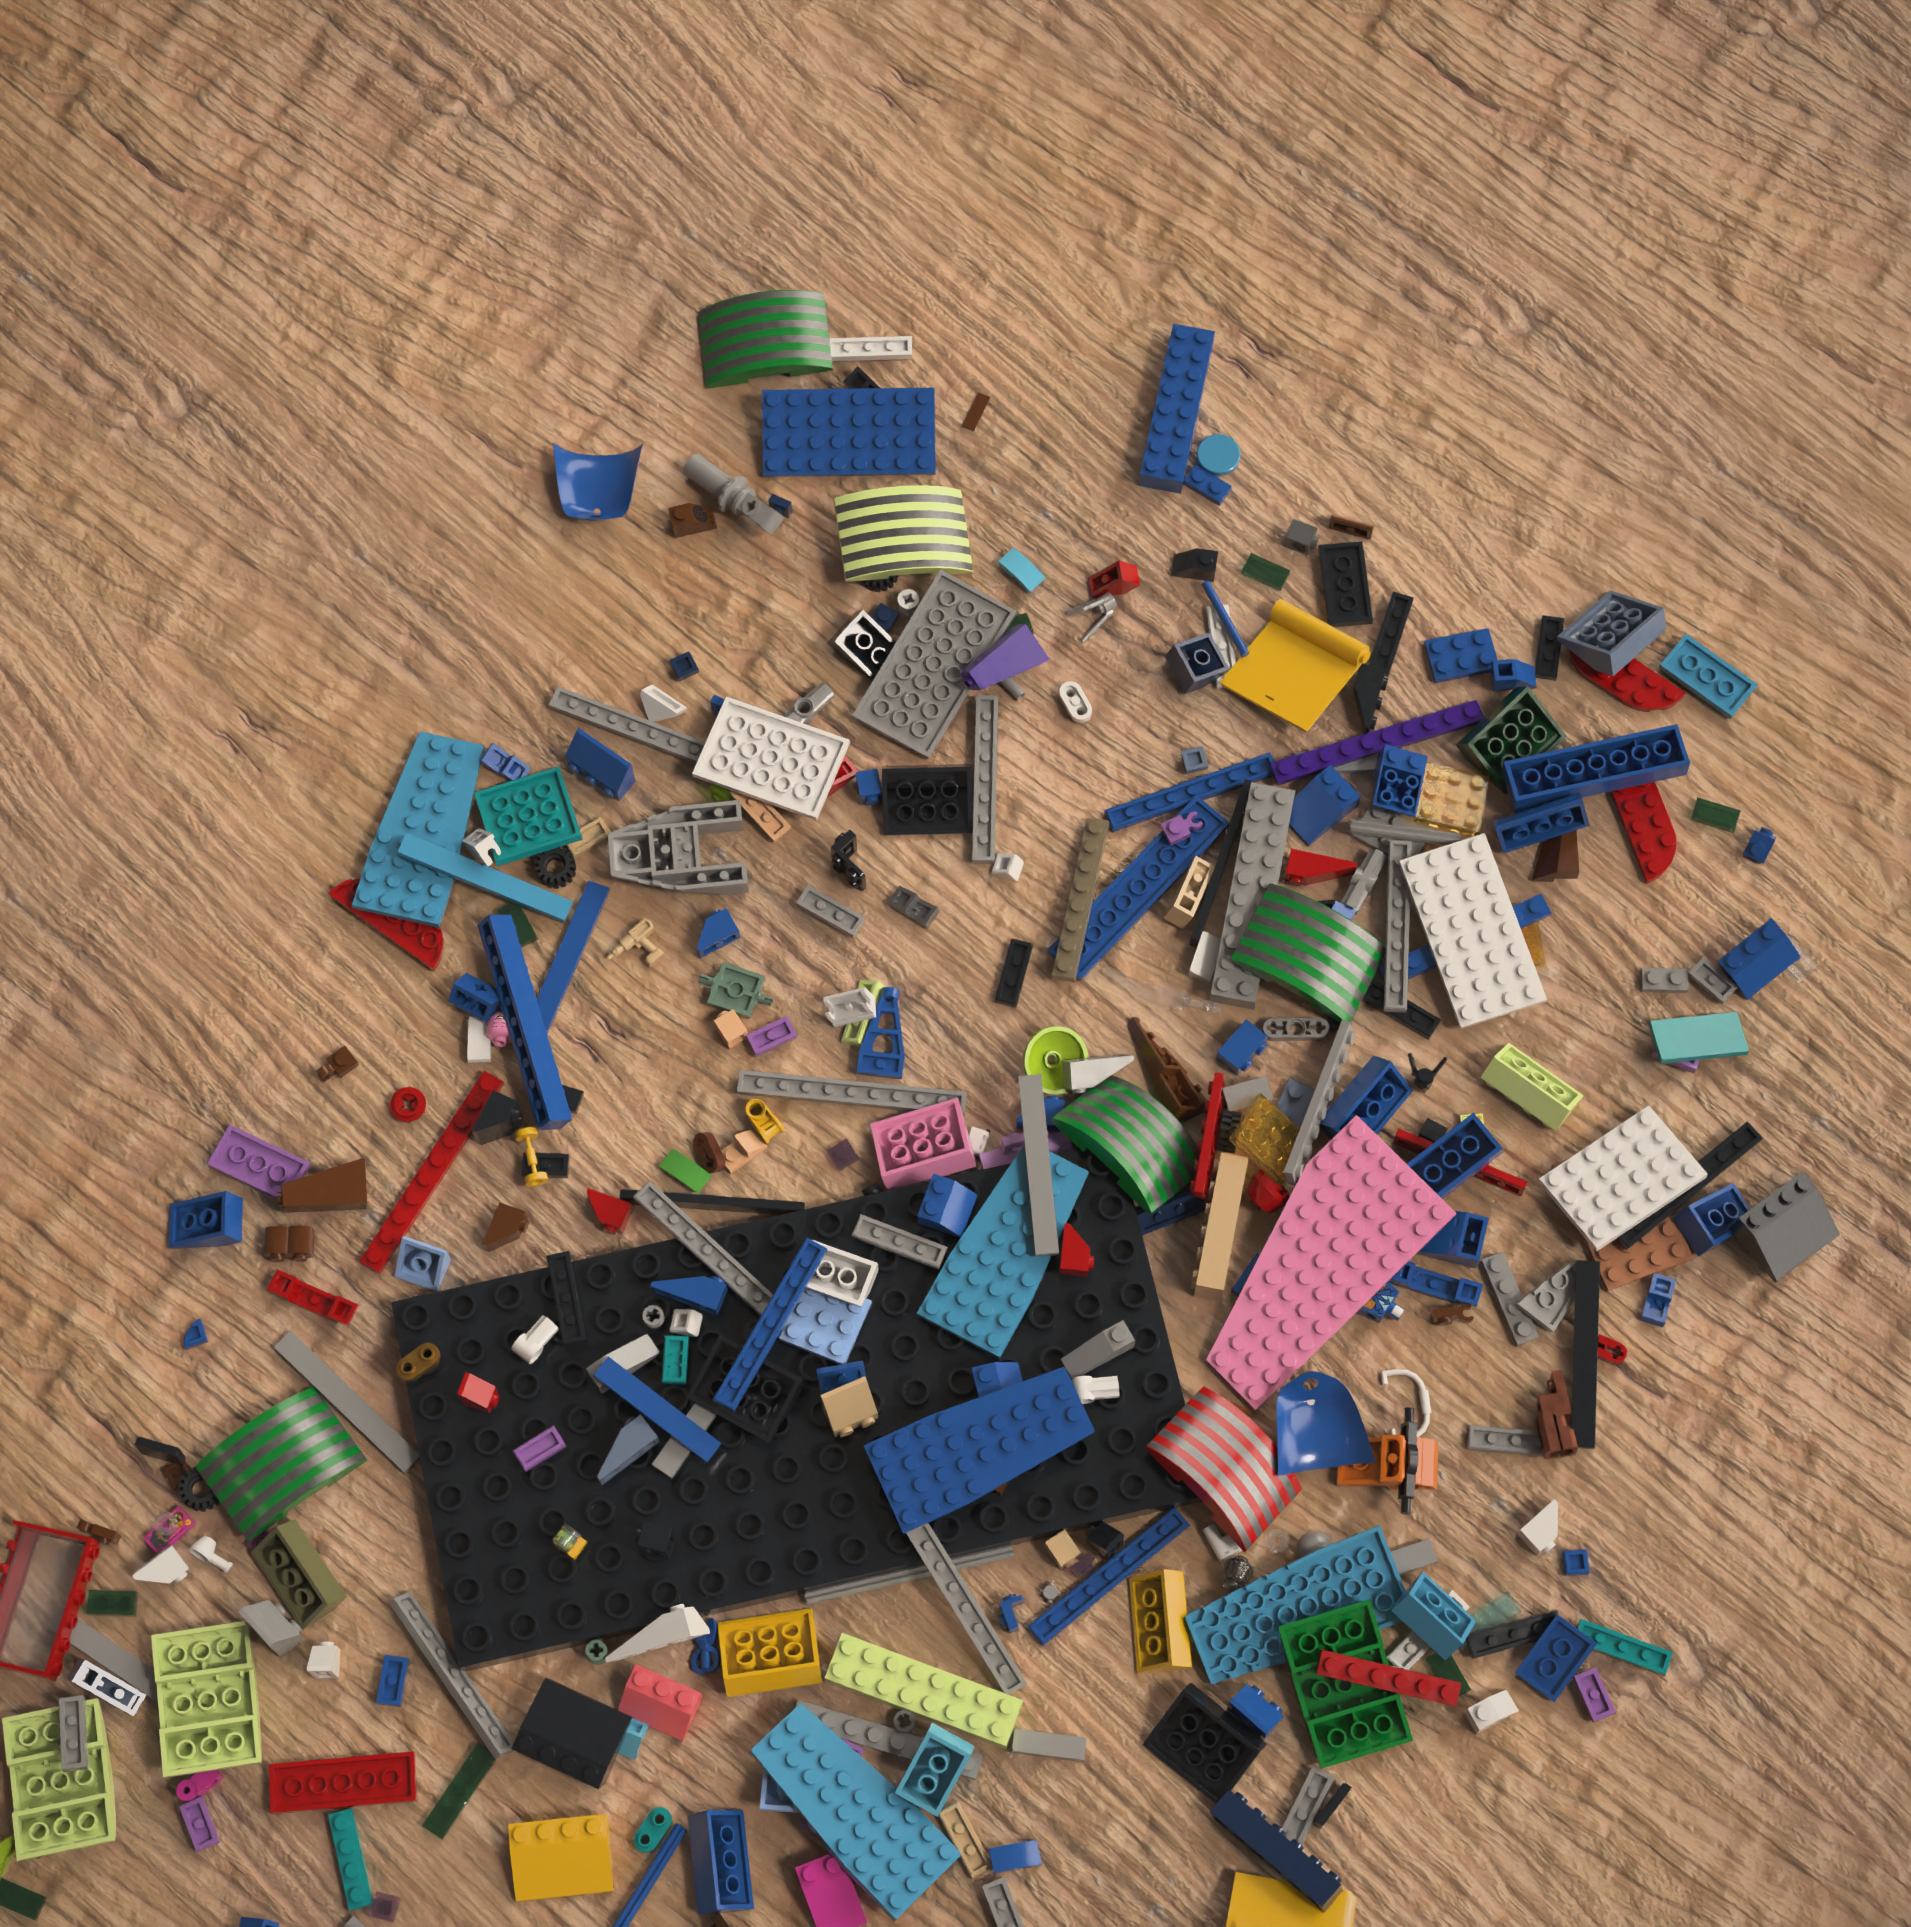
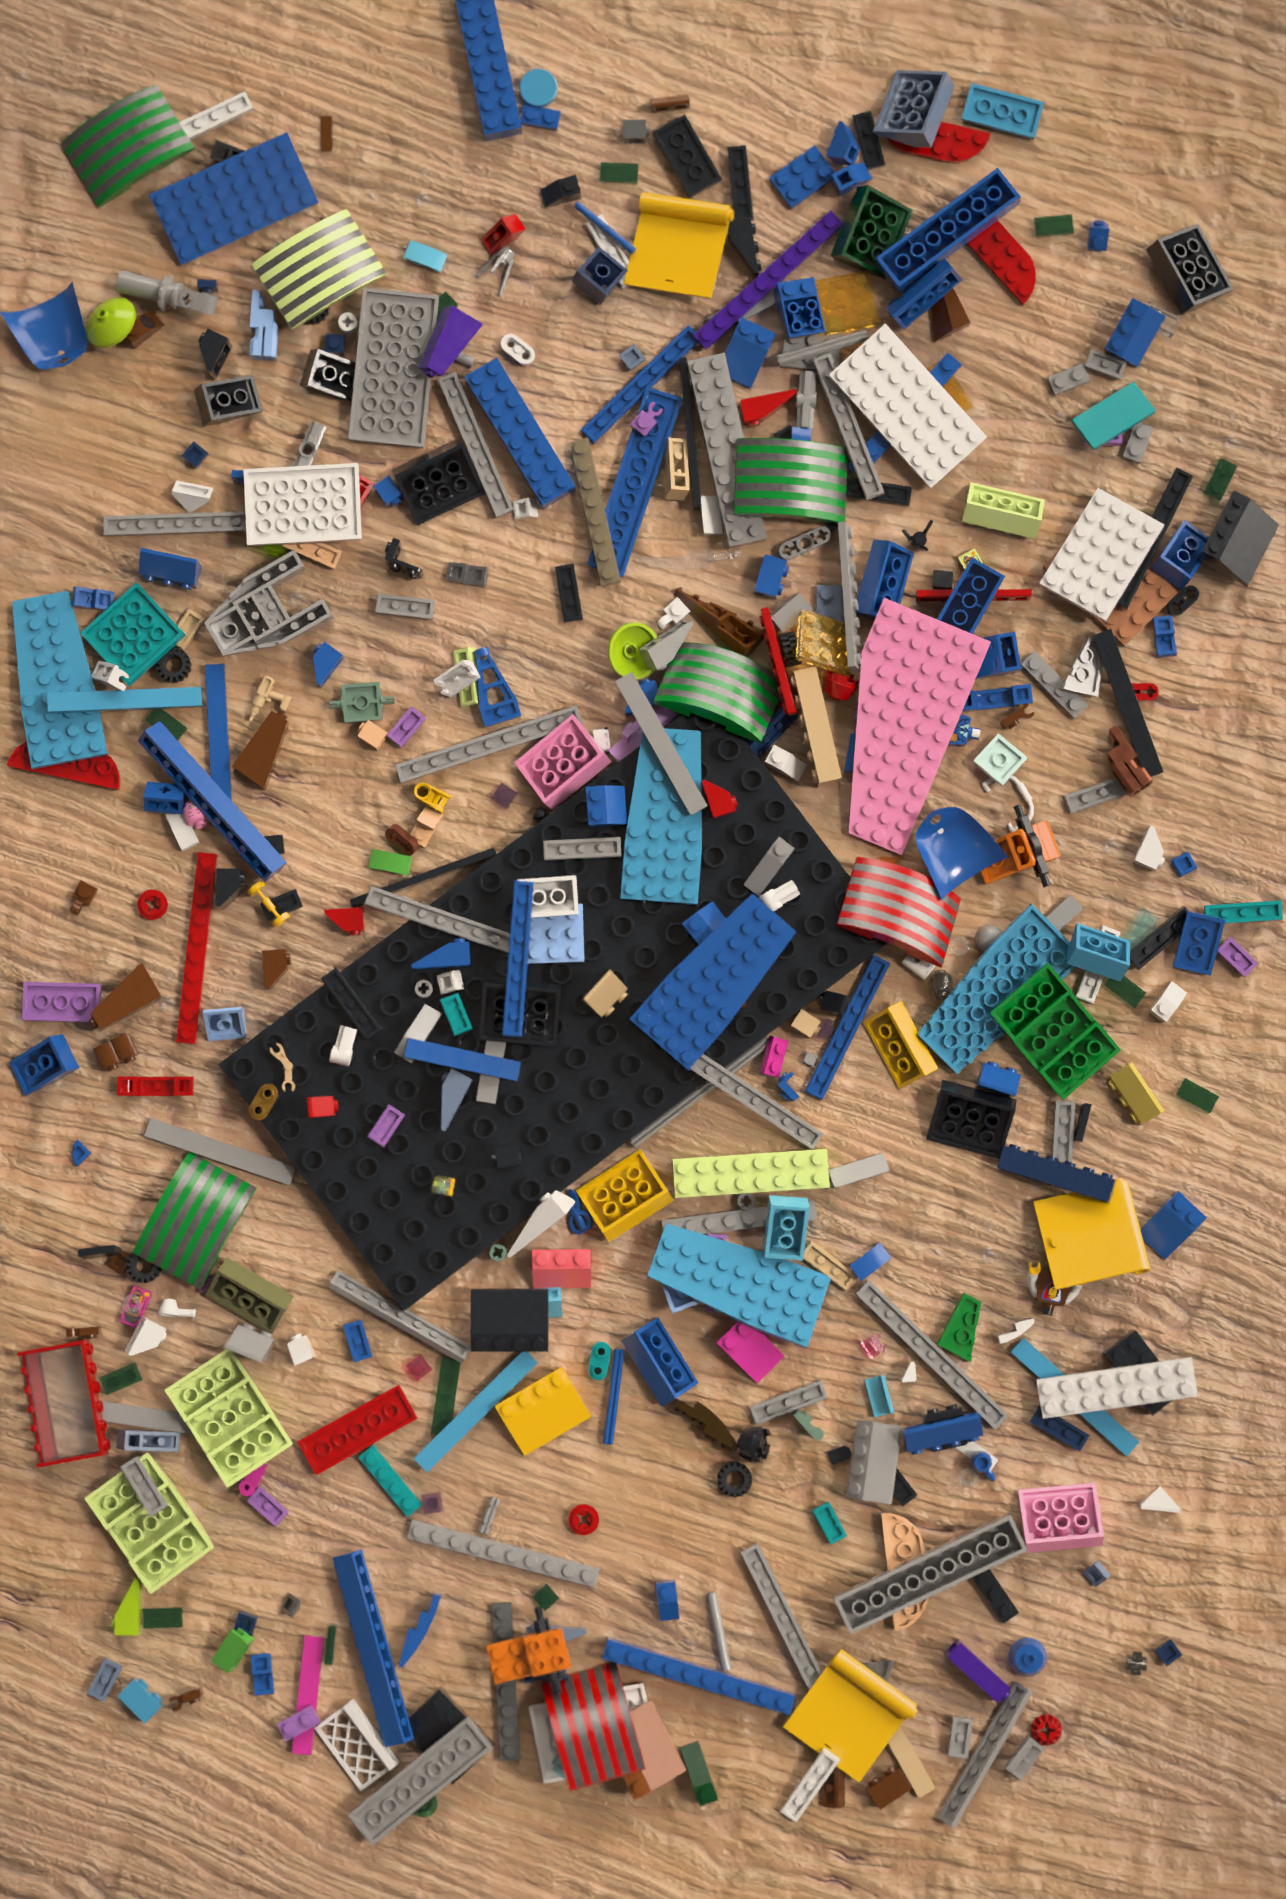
camera: 25 degrees left, 15 degrees up
(446, 1743) = (419, 1367): none -> clear pink tile
(464, 1335) = (287, 1065): none -> tan piece
(484, 1821) = (475, 1410): none -> dark azure tile
(606, 993) = (262, 751): none -> reddish brown slope
(661, 498) = (110, 322): none -> lime dish
(745, 625) = (227, 400): none -> black slope
(754, 571) = (215, 351): none -> black slope
(818, 572) = (266, 330): none -> light blue plate
(839, 1375) = (587, 972): blue plate -> none
(1010, 1571) = (774, 1056): none -> dark pink plate
(1038, 786) = (520, 433): none -> blue brick
(1119, 1040) = (674, 612): none -> white plate
(1168, 1252) = (785, 763): none -> white slope
(1388, 1677) = (1084, 1013): red plate -> none
(1408, 1799) = (1135, 1094): none -> light yellow slope
(1412, 1353) = (1000, 760): none -> light aqua plate
(1481, 1836) = (1197, 1095): none -> clear green tile
(1518, 640) = (843, 147): none -> blue slope
(1696, 1275) = (1186, 604): none -> black beam
(1714, 1079) = (1137, 442): none -> light grey plate
(1792, 1156) = (1220, 479): none -> clear green plate
(1848, 919) = (1189, 268): none -> black slope

